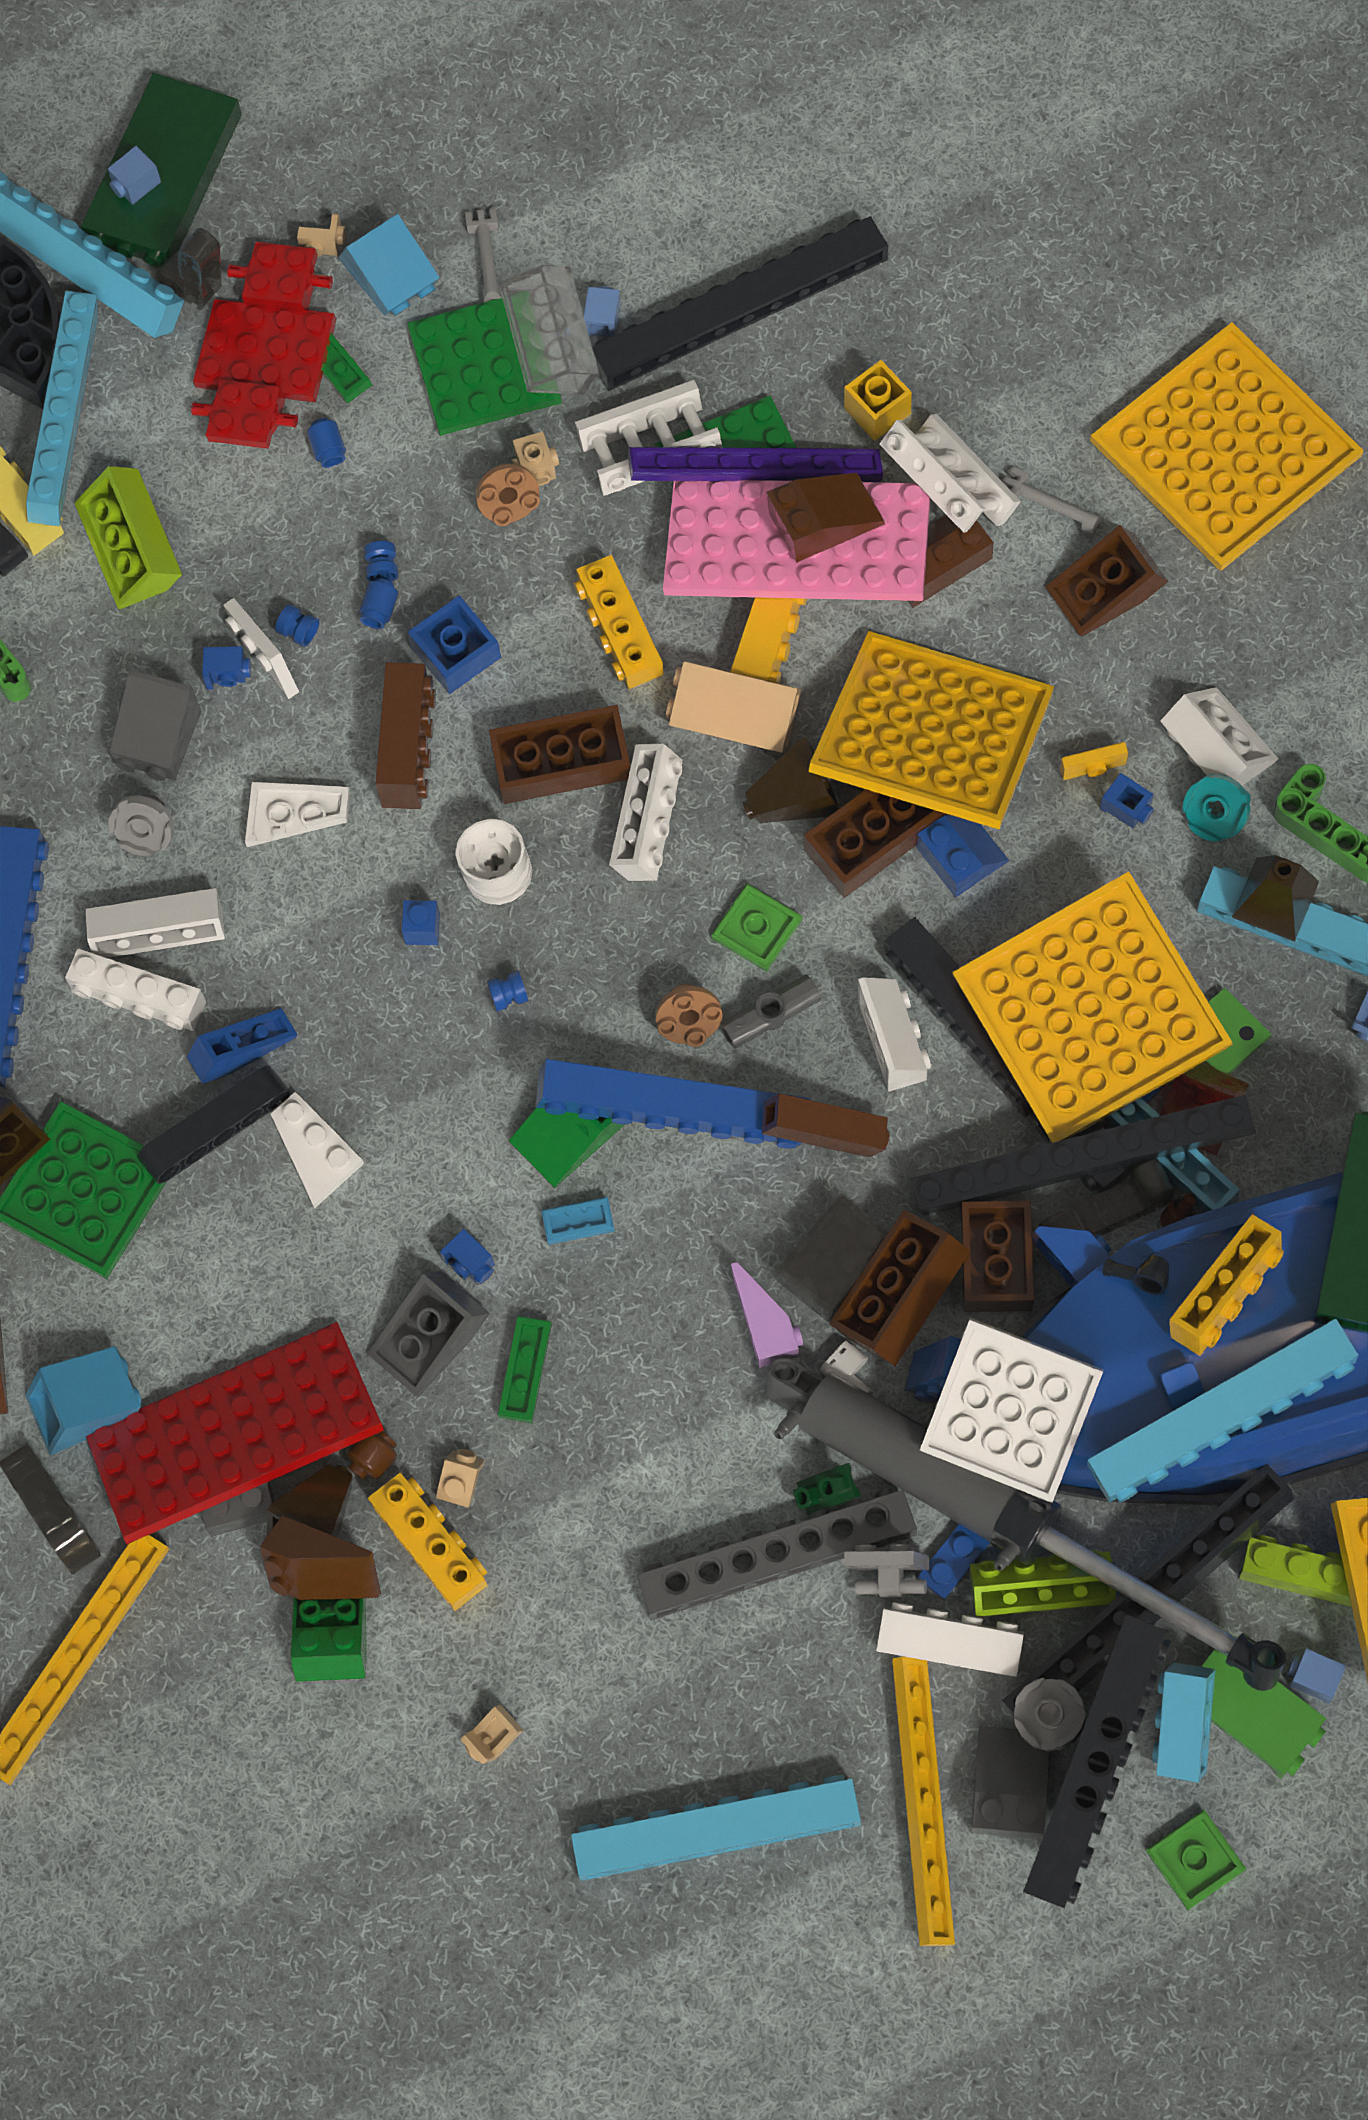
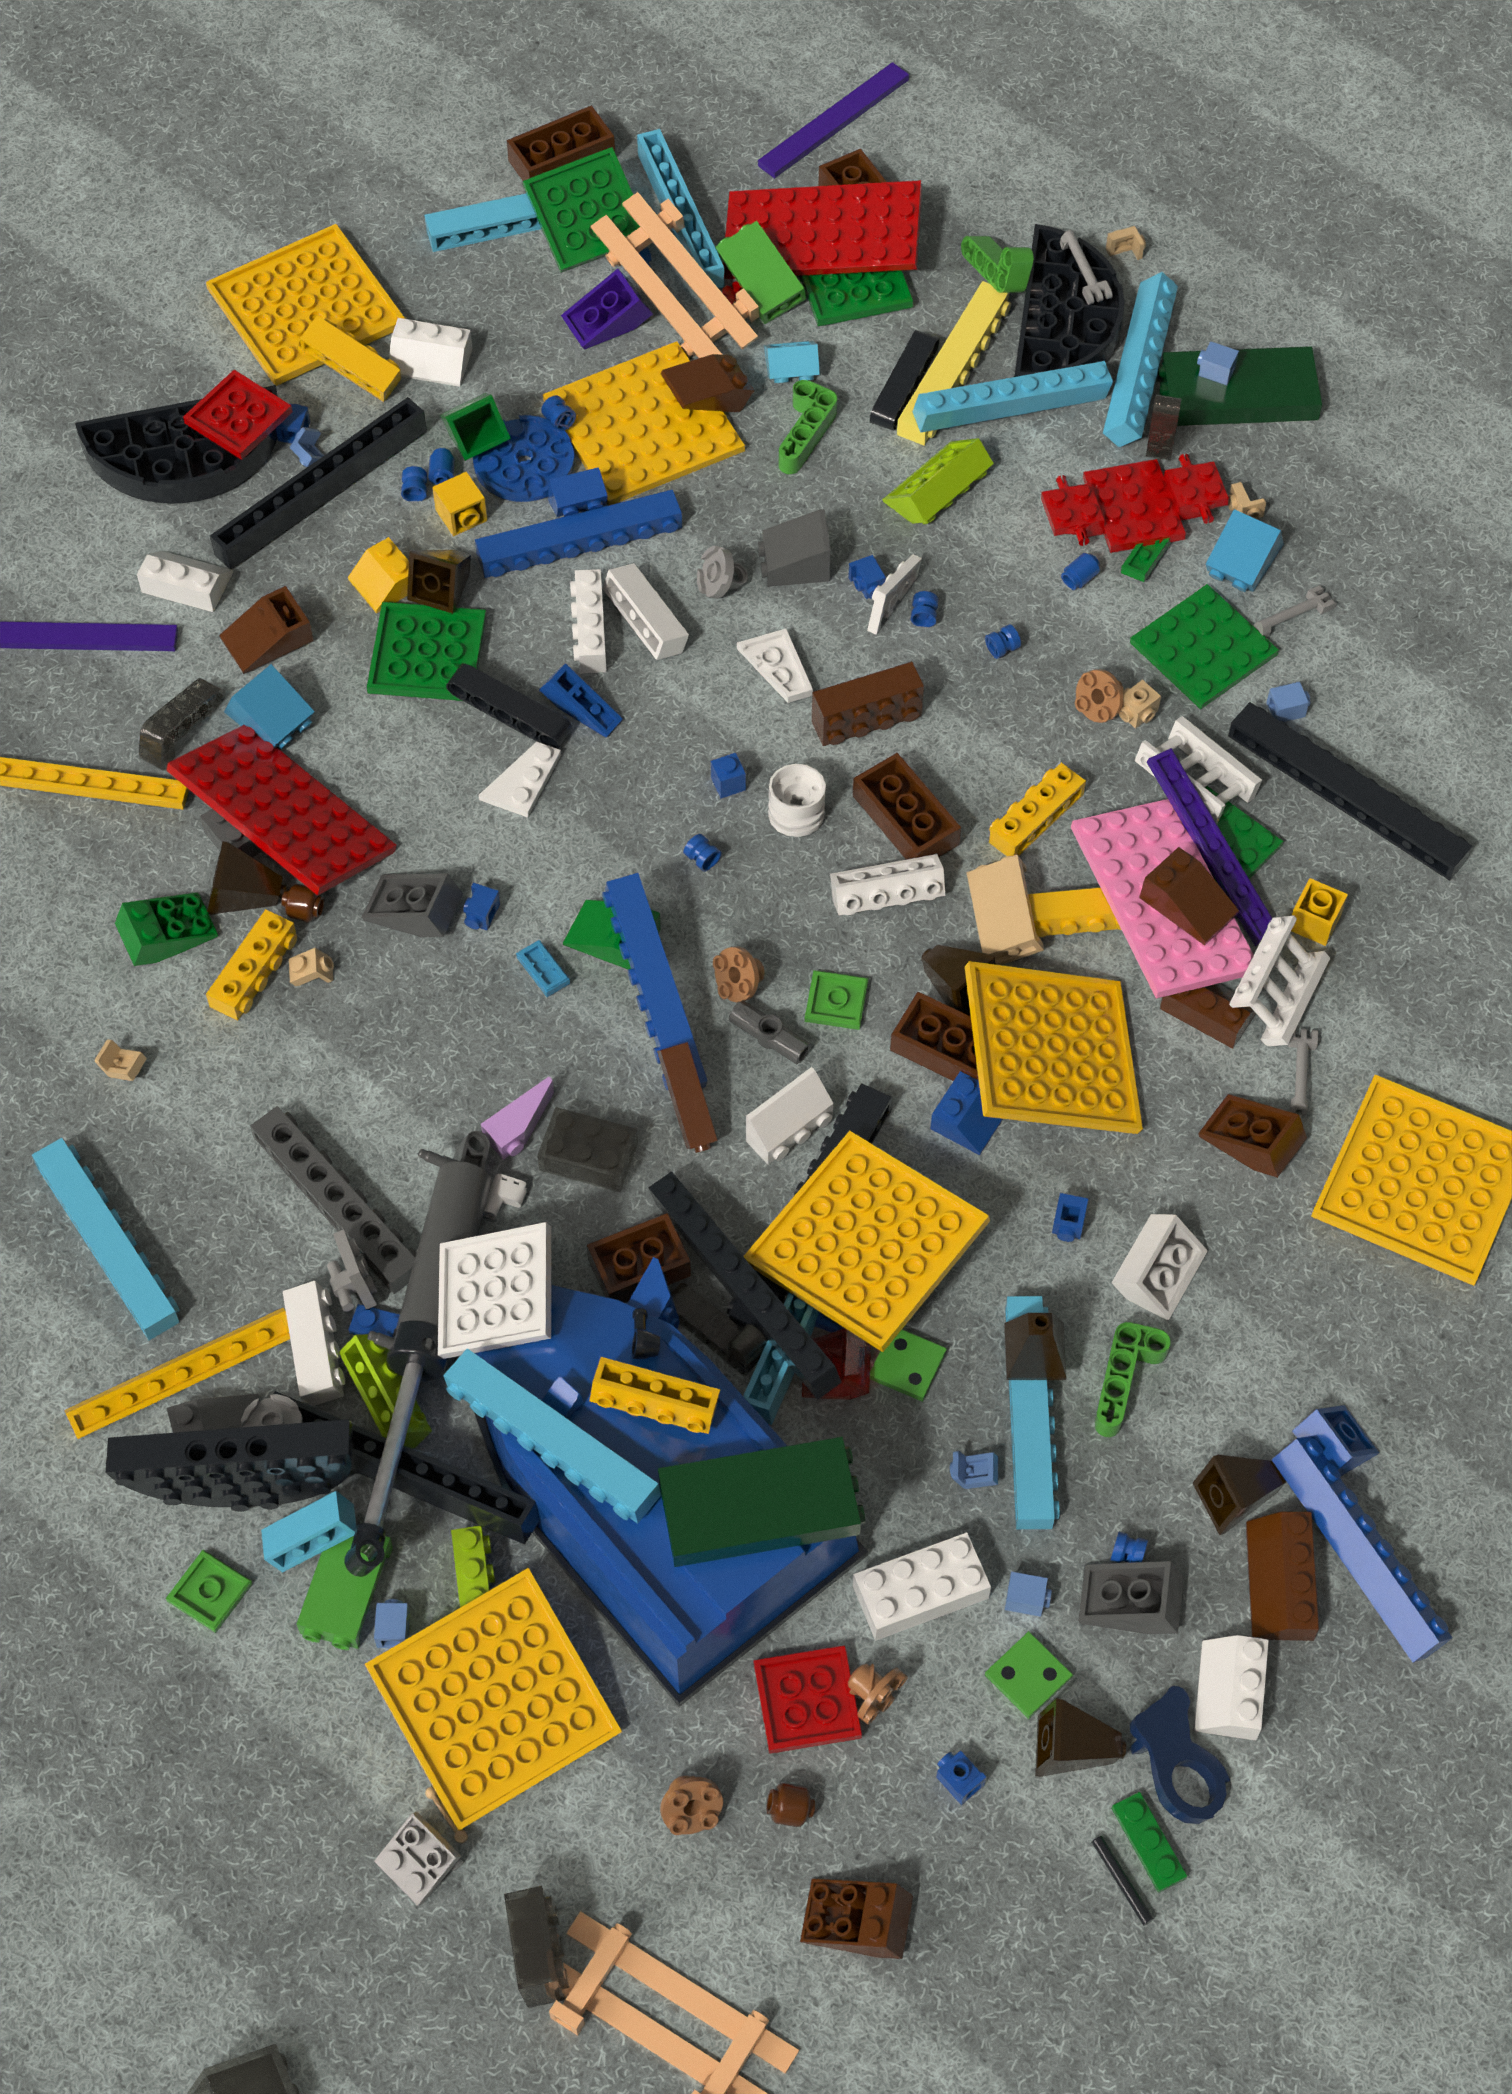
camera: 60 degrees right, 10 degrees down
(316, 1564) = (195, 887): reddish brown slope -> none
(378, 603) = (969, 652): blue brick -> none
(454, 644) = (959, 710): blue brick -> none
(524, 1369) = (411, 978): green plate -> none
(549, 330) = (1248, 670): clear slope -> none
(826, 1489) = (399, 1211): dark green hips -> none
(899, 1287) = (577, 1196): reddish brown brick -> none
(1094, 761) = (1092, 1181): yellow plate -> none
(1178, 1210) = (738, 1378): reddish brown cylinder -> none
(1234, 800) = (1105, 1291): teal plate -> none

